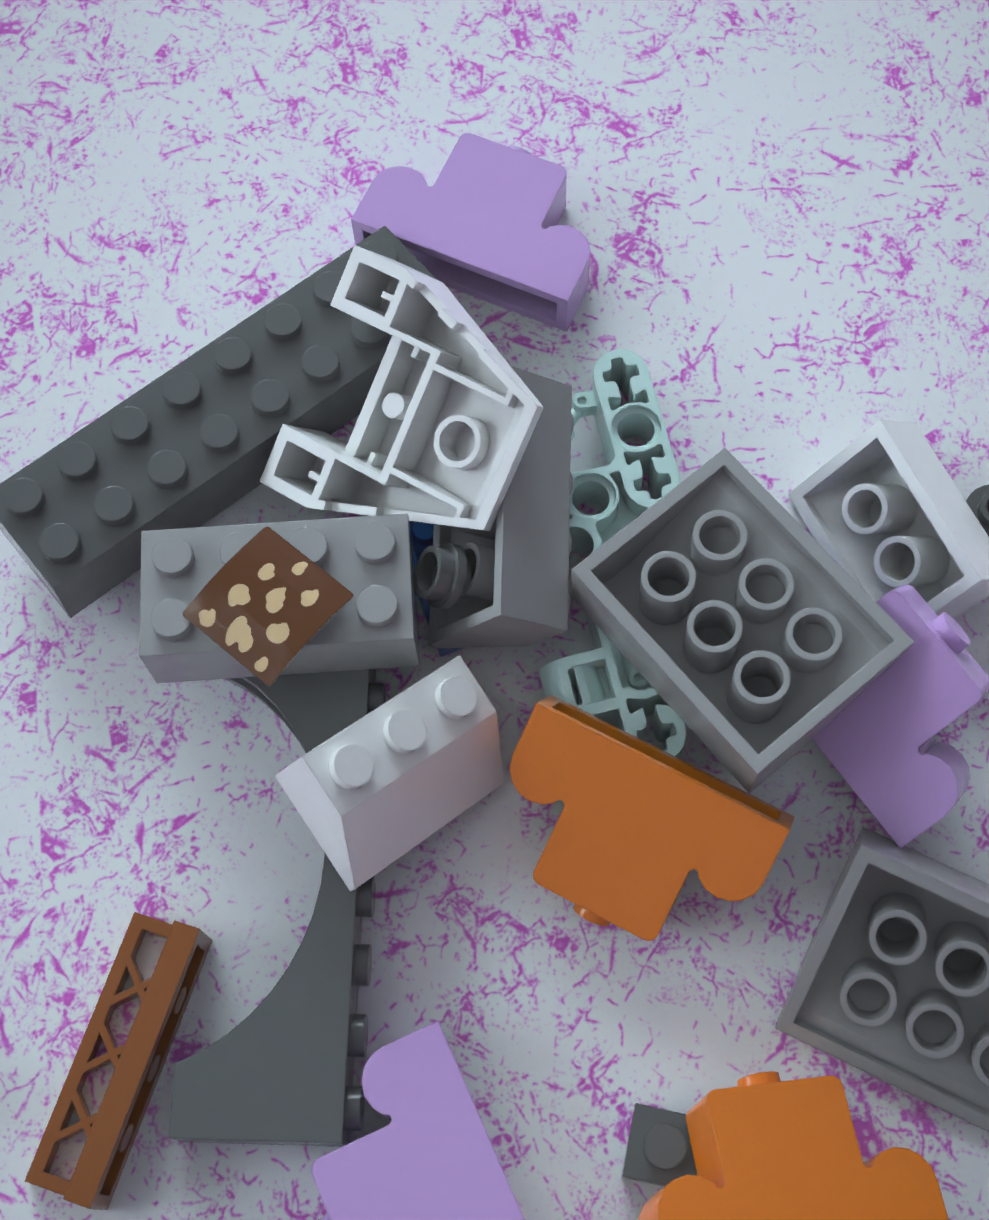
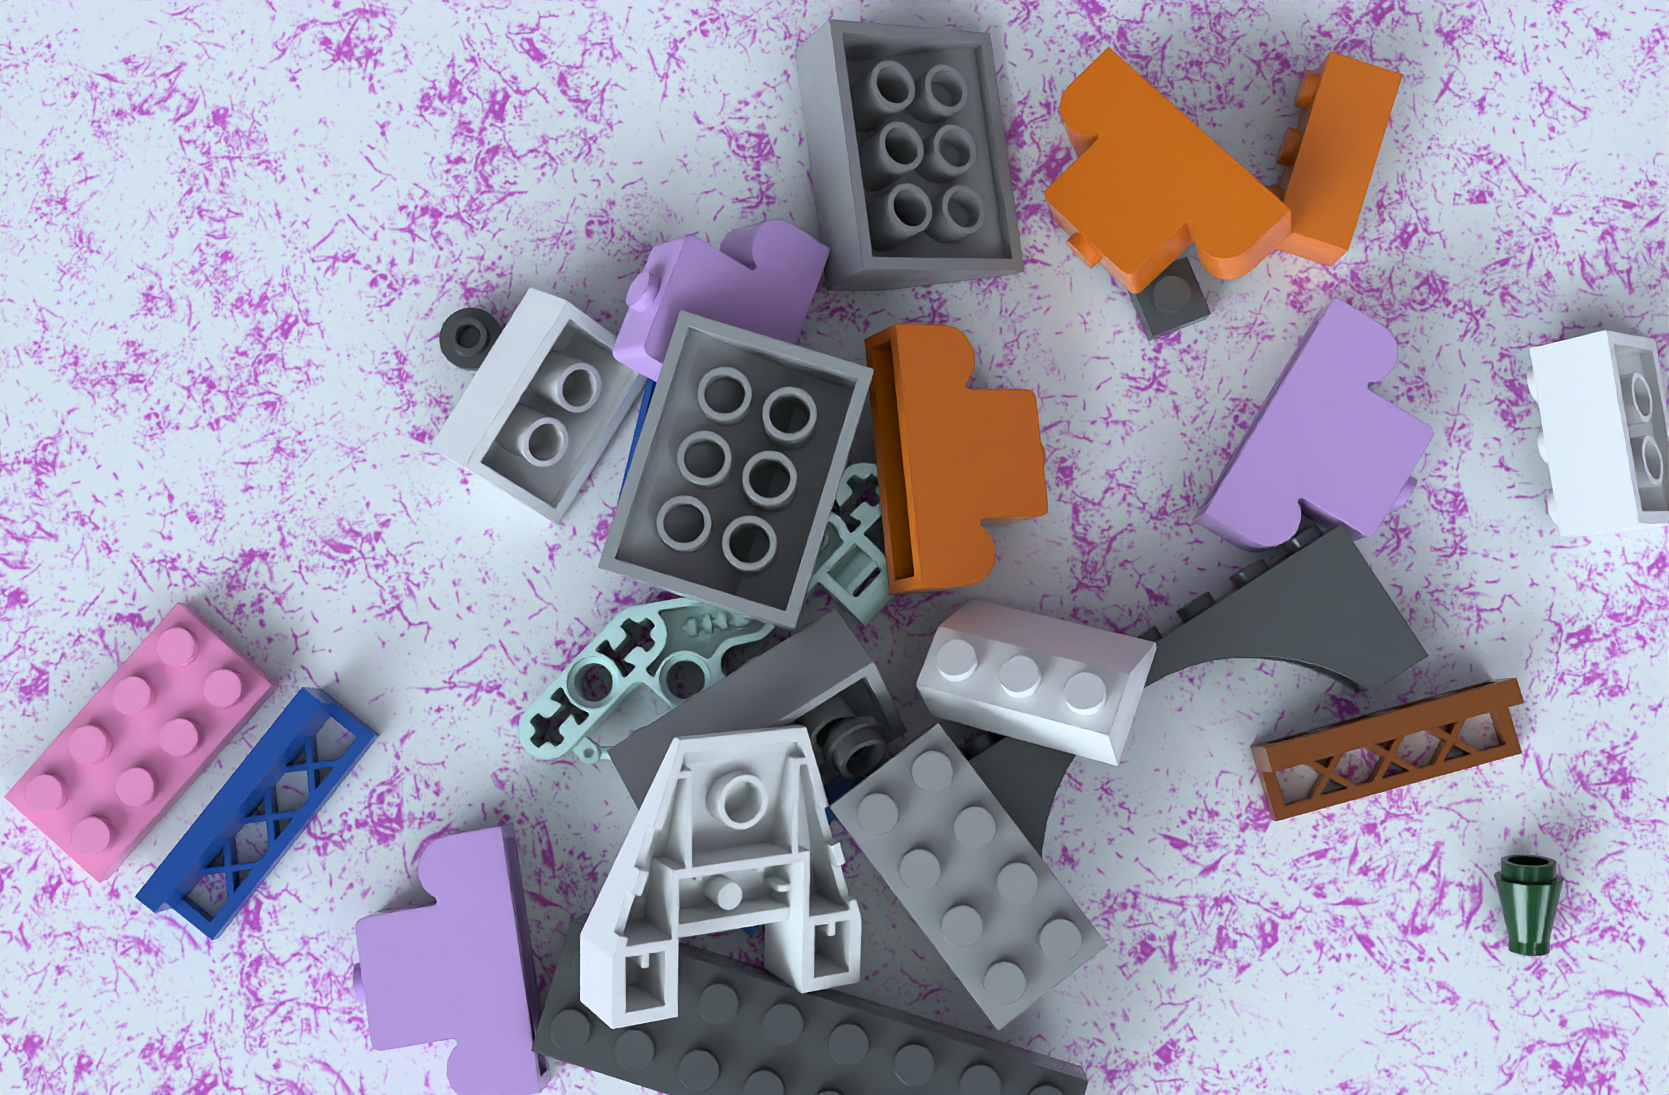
camera: 125 degrees left, 15 degrees up
(266, 604) = (995, 864): reddish brown sticker -> none
(715, 153) = (239, 799): none -> blue fence
(806, 122) = (141, 742): none -> bright pink plate

